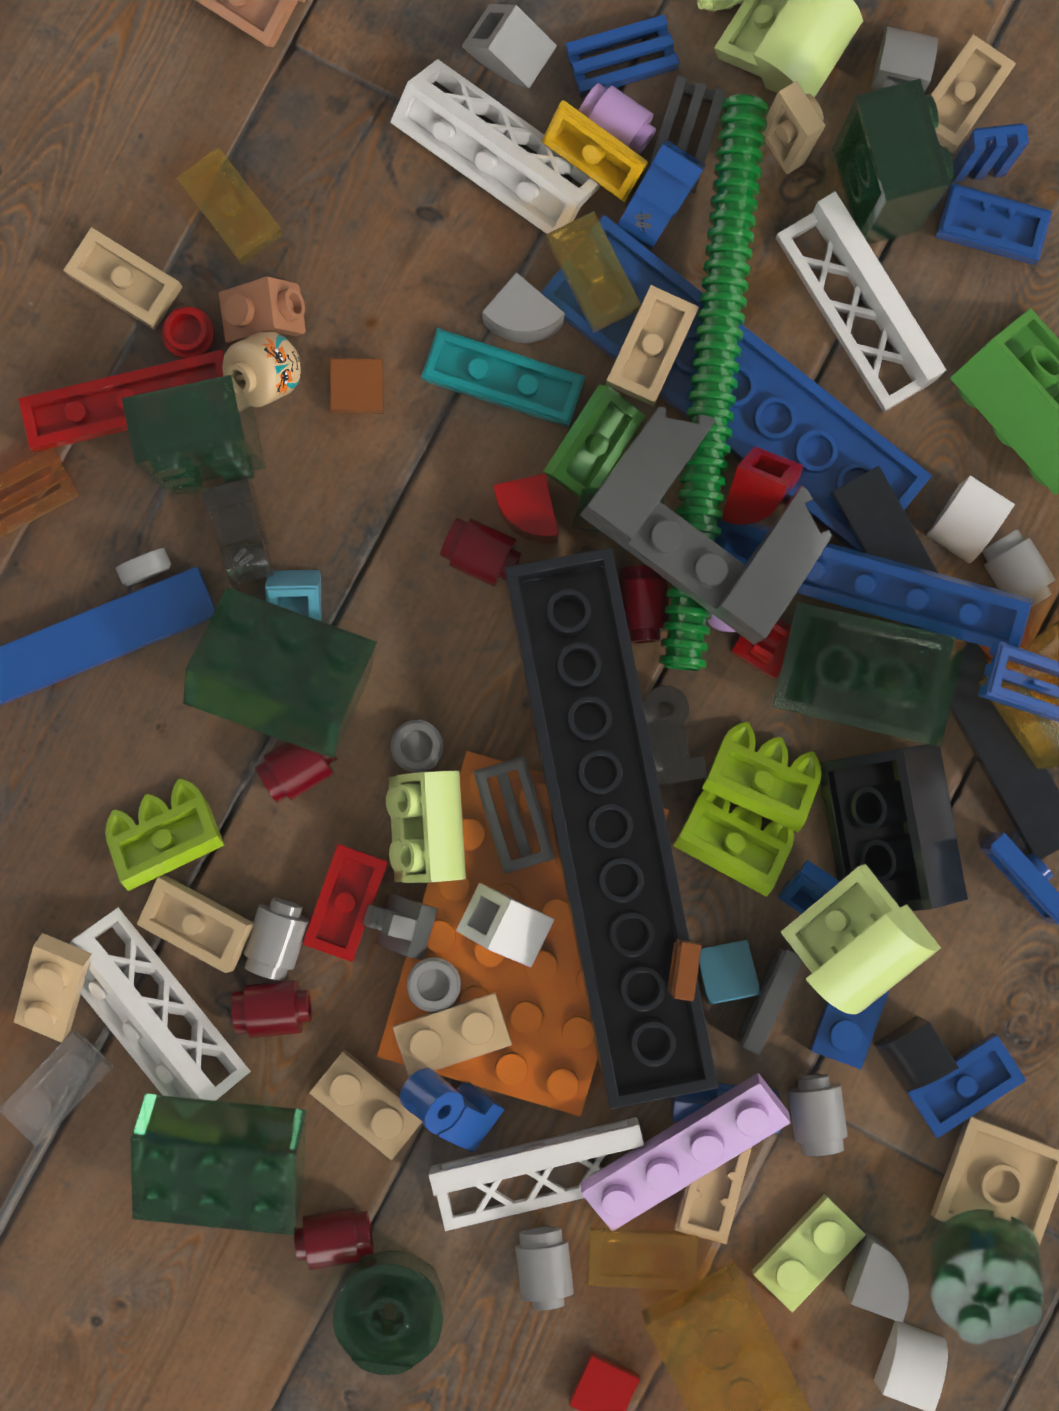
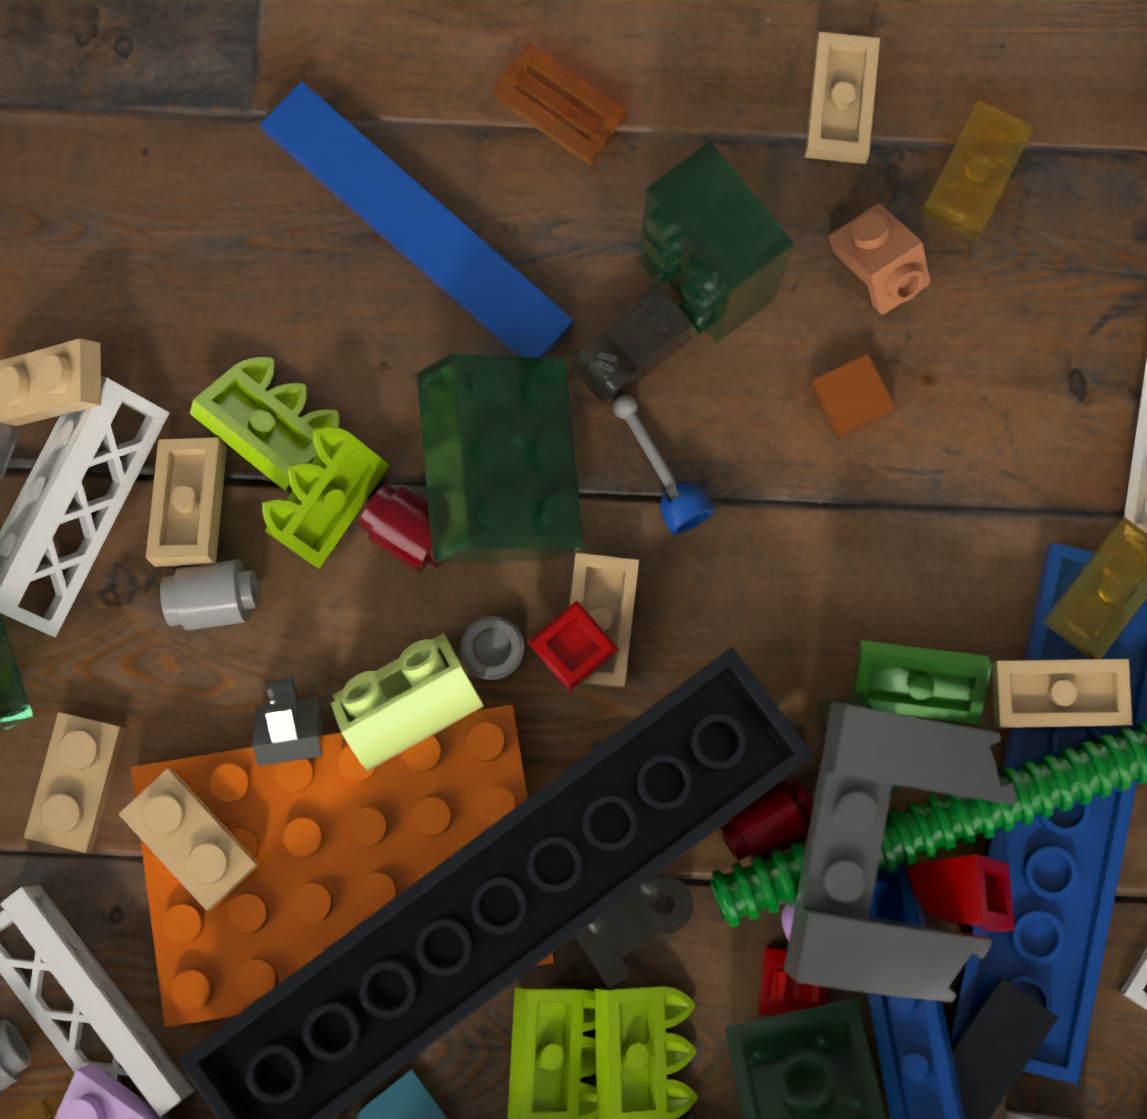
camera: 65 degrees right, 5 degrees down
(97, 407) = (682, 122): red plate -> none
(143, 567) = (545, 264): light grey tile -> none
(188, 332) = (819, 192): red plate -> none
(241, 817) = (324, 494): none -> lime plate
(263, 367) = (821, 285): tan head -> none
(271, 1009) = (131, 626): dark red brick -> none
(296, 591) = (597, 438): medium azure slope -> none
(343, 902) = (279, 649): red plate -> none
(377, 553) = (683, 502): none -> hinge
(433, 984) = (236, 791): light grey tile -> none
(435, 656) = (607, 592): none -> tan plate
(446, 684) = (573, 646): none -> red tile
(455, 1115) = (101, 876): blue leg -> none
(479, 550) = (739, 612): dark red brick -> none
(503, 378) = (941, 549): teal tile -> none
(505, 925) = (336, 839): white brick -> none
(522, 313) = (1022, 534): light grey brick -> none
(527, 859) = (423, 828): dark grey tile -> none
(528, 508) = (812, 643): red brick -> none
(684, 969) = (371, 1070): dark orange tile -> none

